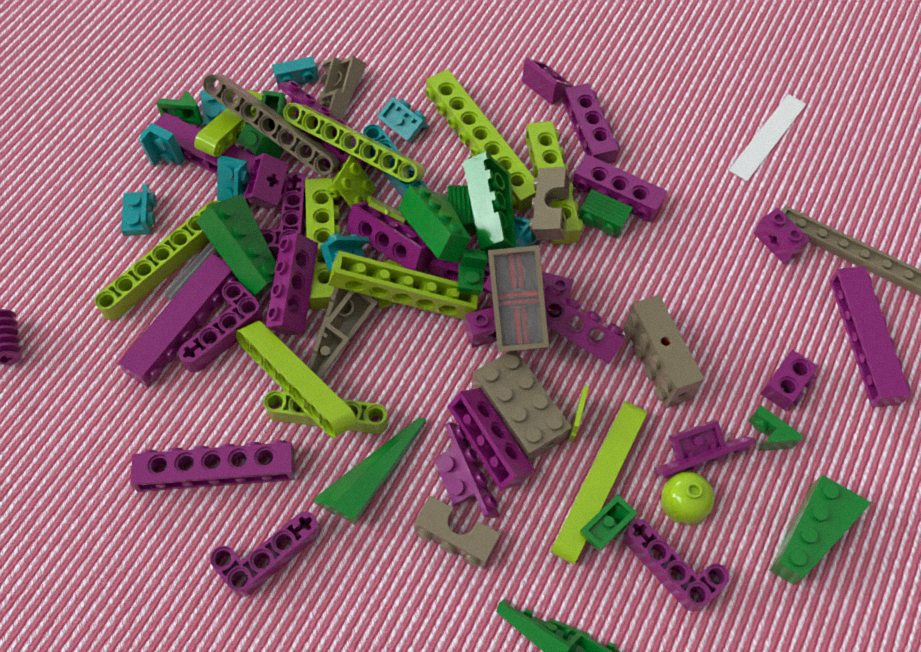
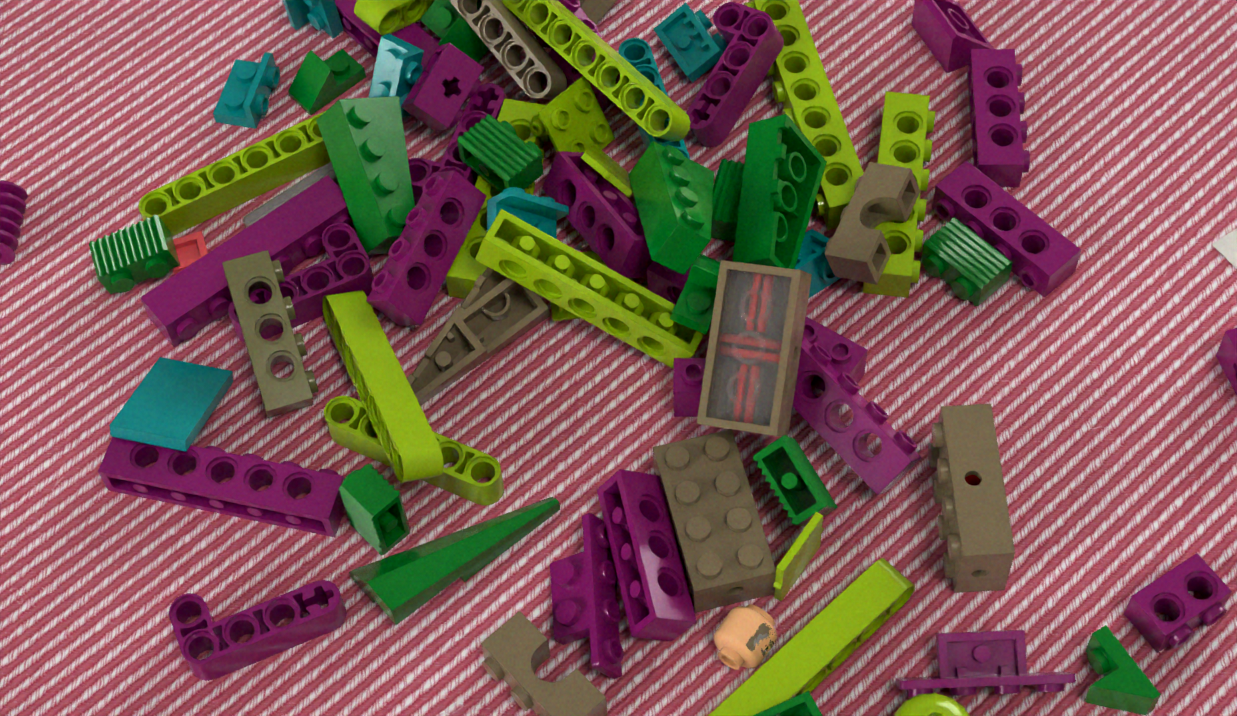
camera: 25 degrees right, 5 degrees down
(102, 335) = (134, 255): none -> green brick
(135, 324) = (189, 249): none -> coral tile
(162, 426) = (171, 404): none -> teal tile
(185, 193) = (323, 81): none -> green slope
(194, 327) = (243, 278): none -> olive brick
(317, 215) = (500, 154): none -> green brick
(317, 457) = (374, 508): none -> green brick
(434, 159) = (750, 53): none -> magenta beam
(561, 369) = (794, 480): none -> green brick
(563, 470) = (745, 637): none -> light nougat head

